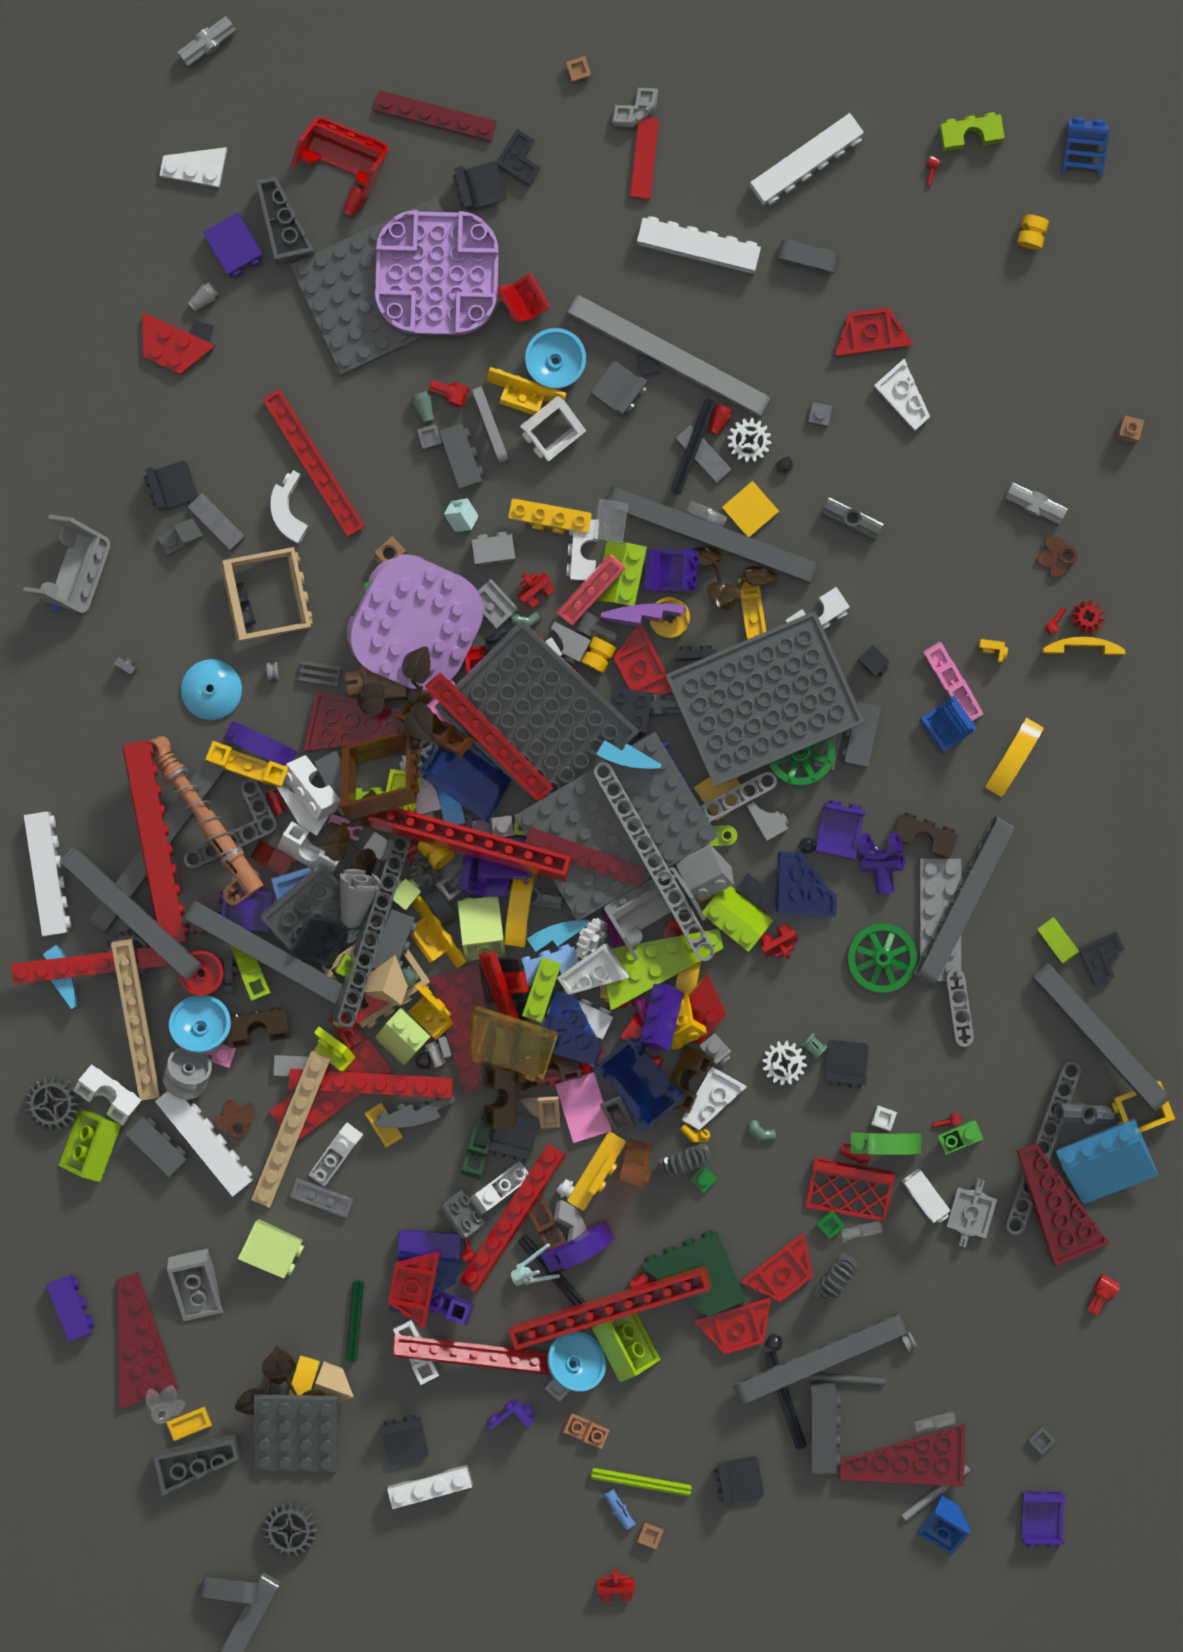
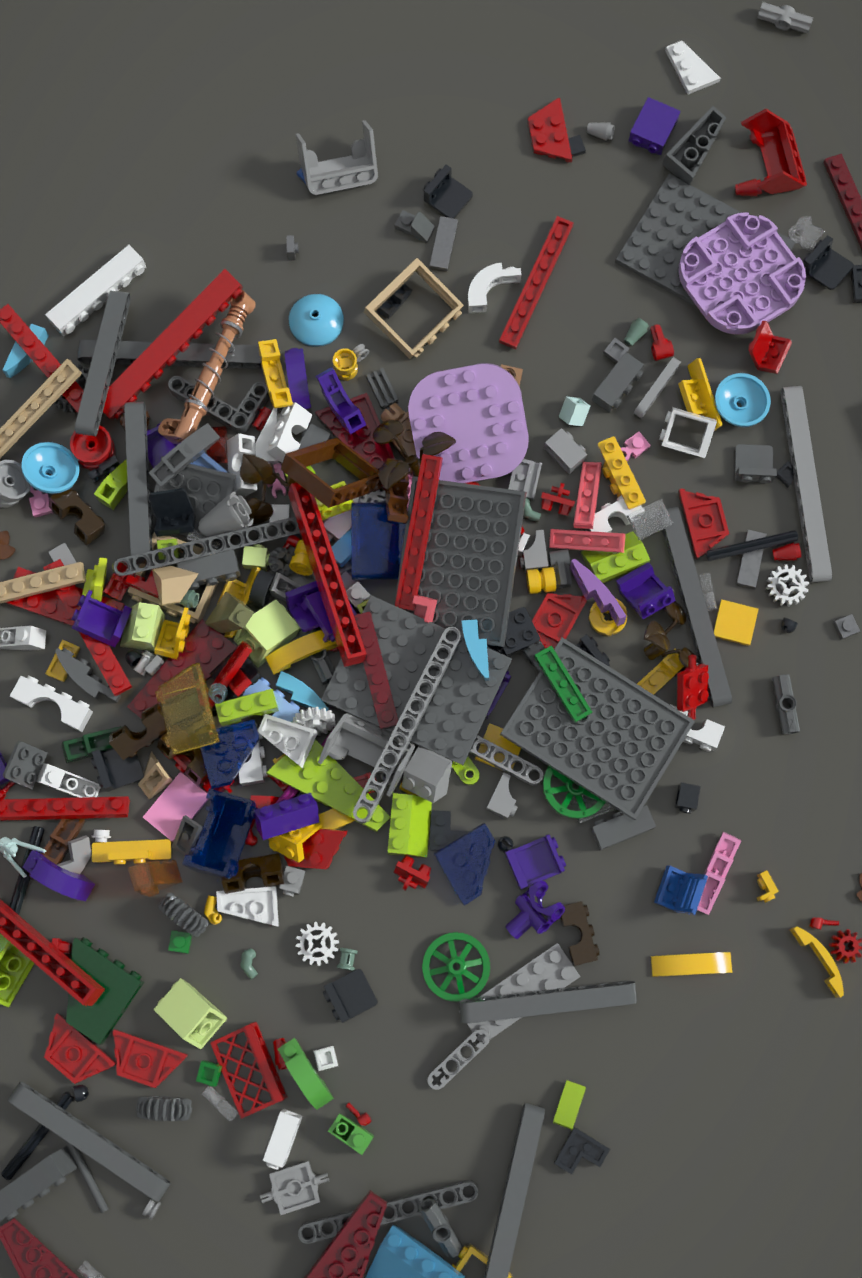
camera: 55 degrees right, 10 degrees down
(275, 896) = (184, 454): none -> dark grey slope
(276, 693) = (345, 364): none -> yellow wheel
(315, 723) = (339, 402): none -> dark purple arch
(375, 1067) = (100, 620): none -> dark purple panel
(395, 1171) = (72, 713): none -> white arch
(435, 178) = (807, 232): none -> clear plate
(447, 950) = (229, 614): none -> olive slope
(514, 1007) = (217, 689): none -> clear light blue cone
(530, 483) = (635, 446): none -> bright pink plate
(548, 559) = (587, 495): none -> coral tile
(557, 776) = (424, 607): none -> coral panel
(641, 471) = (704, 520): none -> red wing
(708, 703) = (563, 684): none -> green plate
(770, 1208) = (190, 1014): none -> yellowish green slope
(784, 591) = (692, 687): none -> red plate

